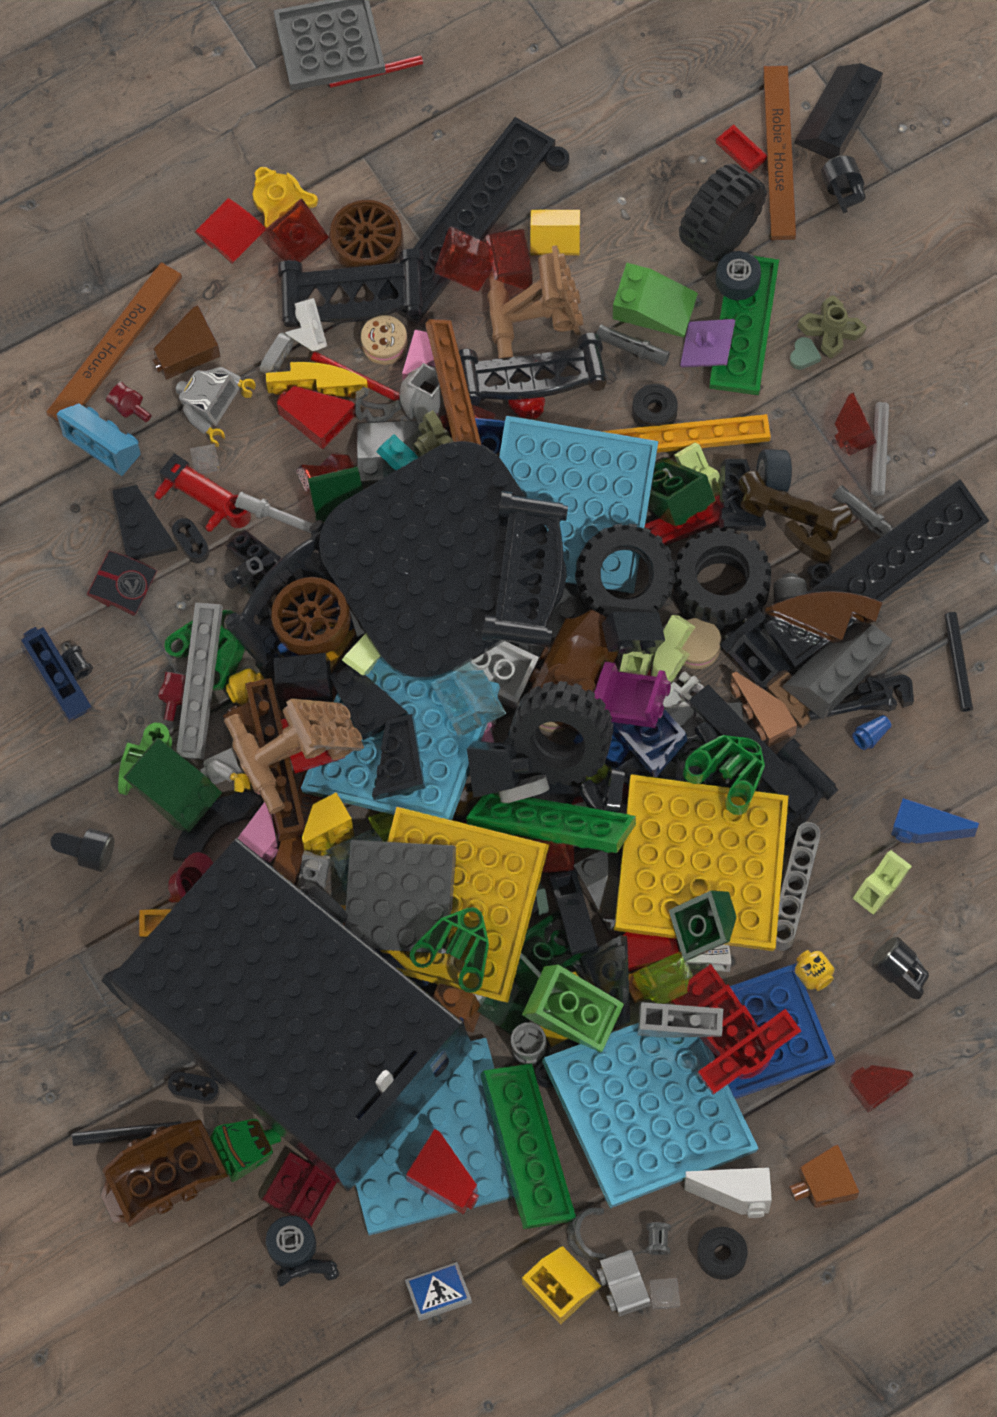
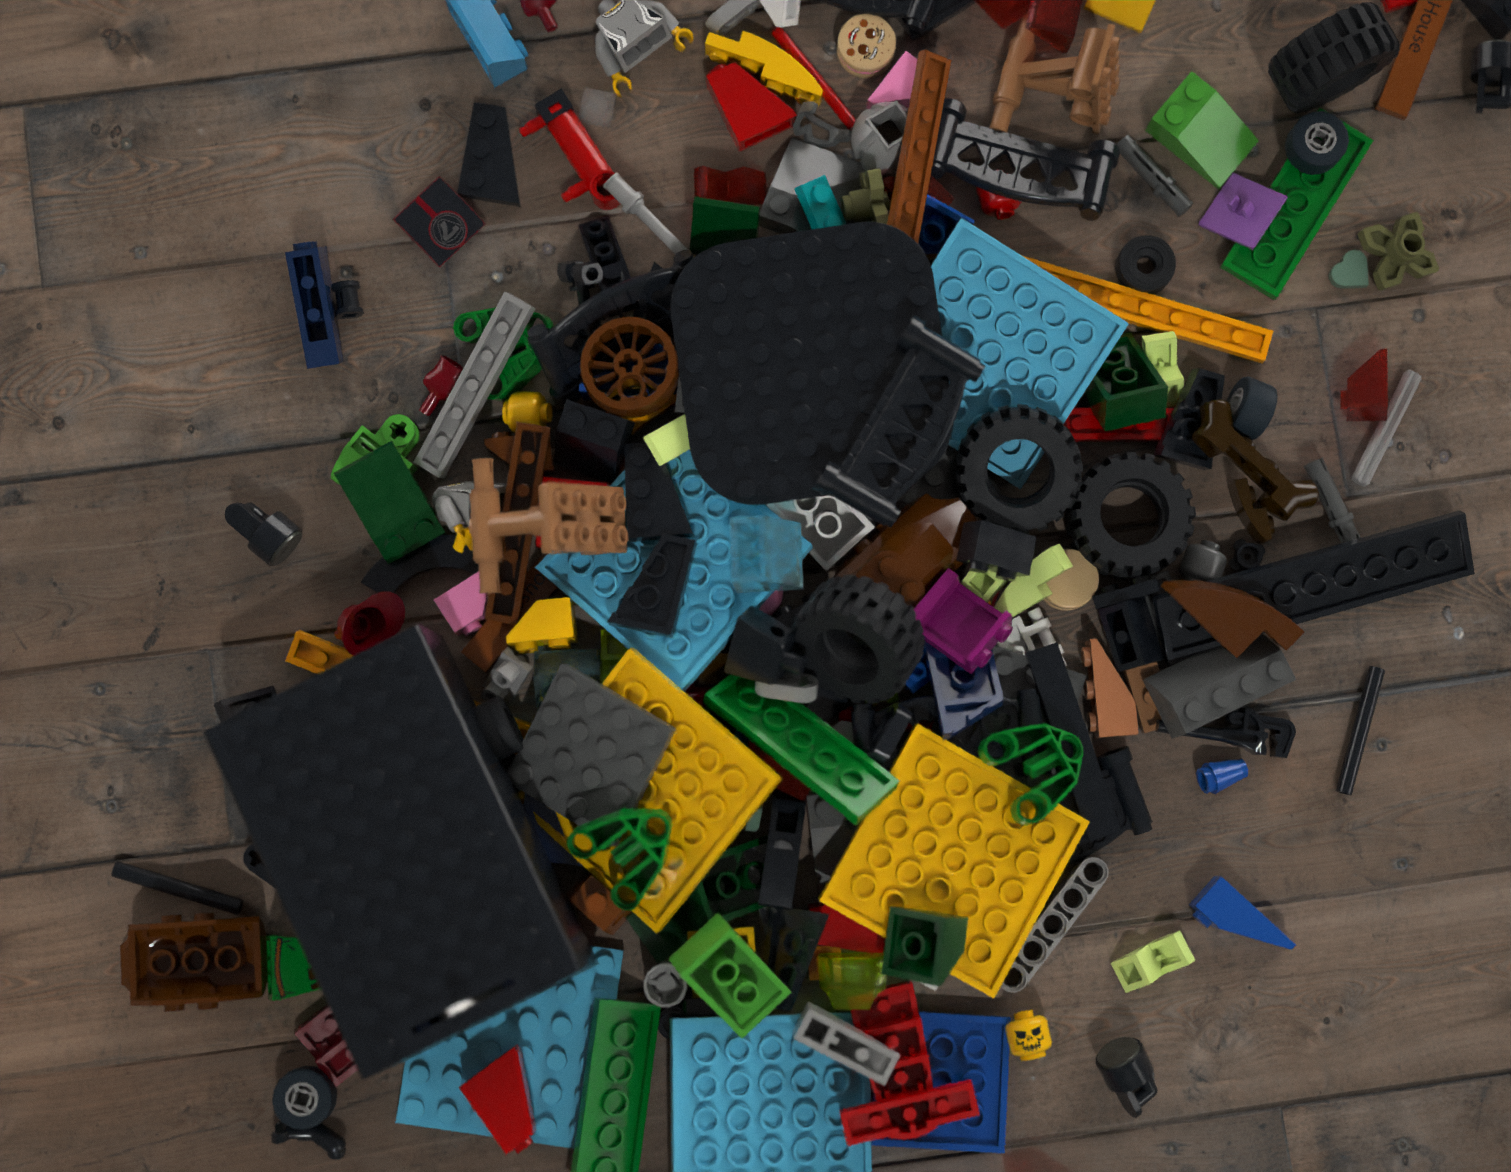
camera: 15 degrees right, 15 degrees up
(186, 543) = (546, 201): black beam -> none

